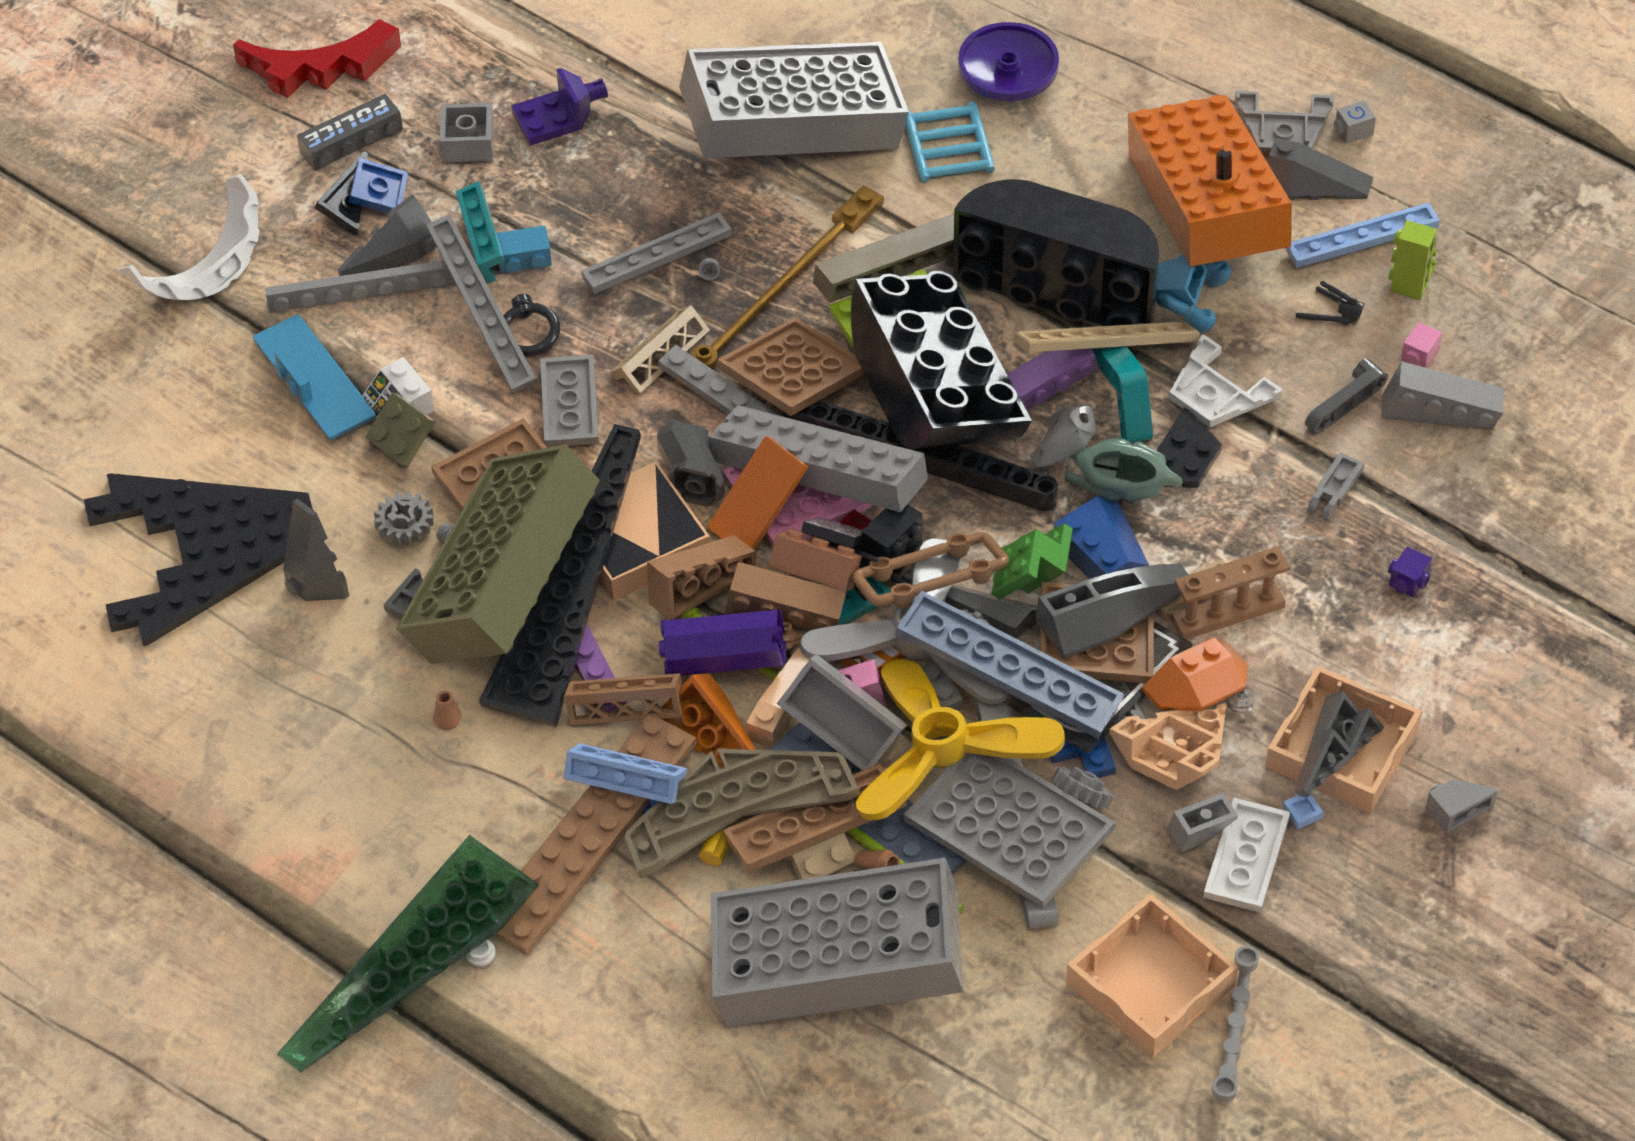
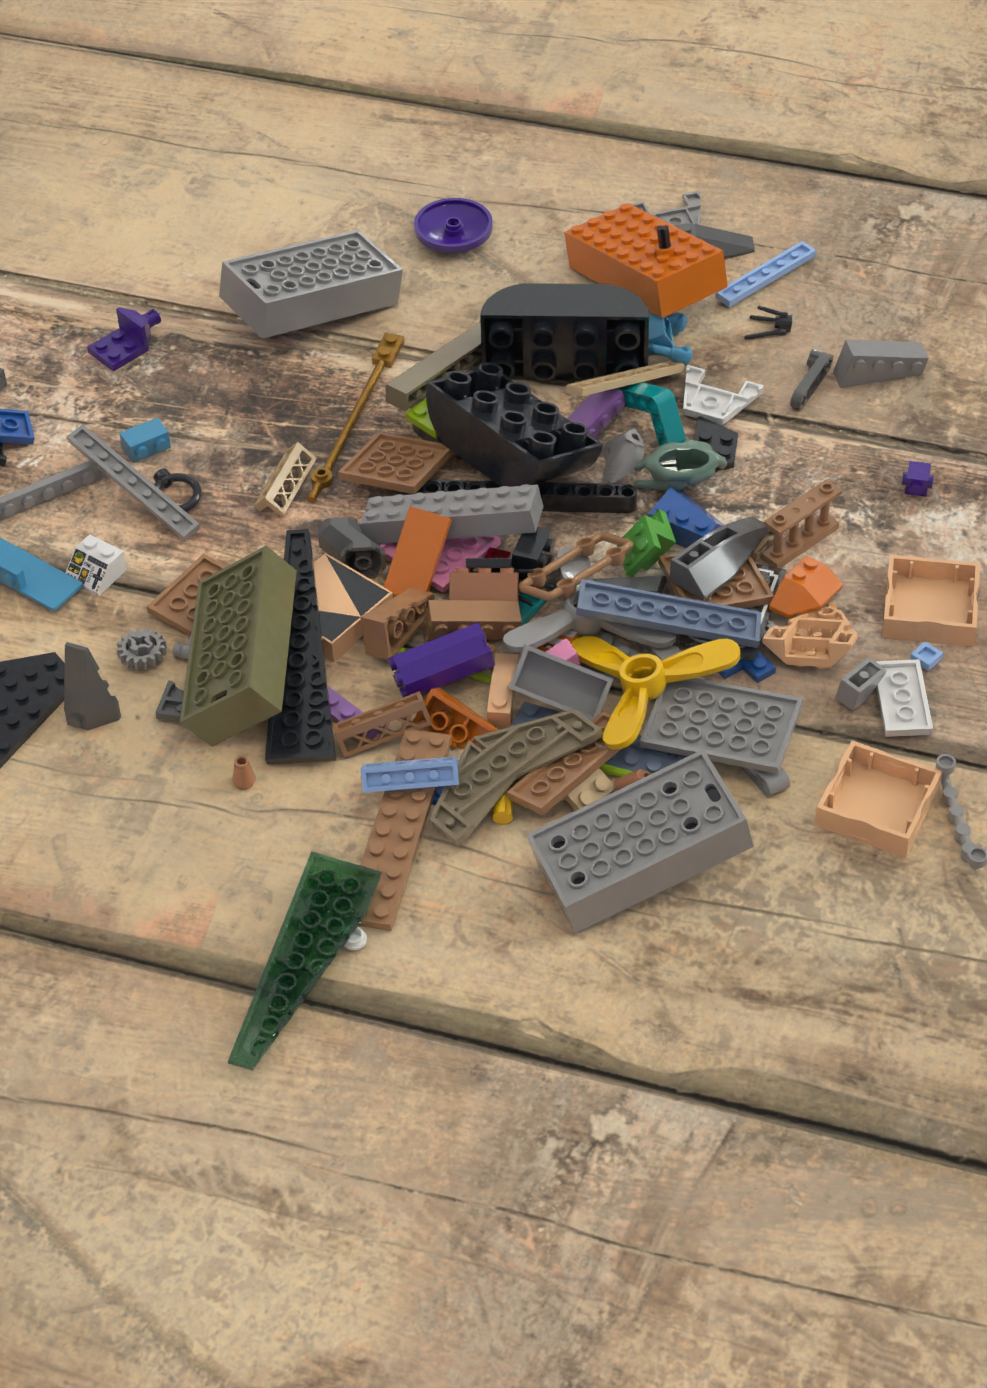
camera: 20 degrees left, 5 degrees down
(397, 243) = (46, 457): dark grey wedge -> none
(400, 429) = (109, 586): olive plate -> none
(466, 132) = (63, 371): light grey brick -> none
(480, 229) = (103, 427): teal fence -> none
(569, 401) = (230, 530): light grey plate -> none
(656, 253) = (249, 417): light grey plate -> none
(704, 272) = (299, 414): light grey hinge -> none
(707, 382) = (332, 492): light grey plate -> none
(974, 128) = (447, 275): medium azure bar -> none
(1083, 786) = (762, 682): light grey gear -> none
(1242, 701) = (843, 597): clear tile -> none
(1336, 484) = (834, 436): light grey hinge -> none
(1336, 739) = (929, 599): dark grey wedge -> none
(1354, 122) = (722, 204): light grey brick -> none
(1413, 259) = (815, 275): lime wedge -> none
(1421, 345) = (845, 330): bright pink brick -> none

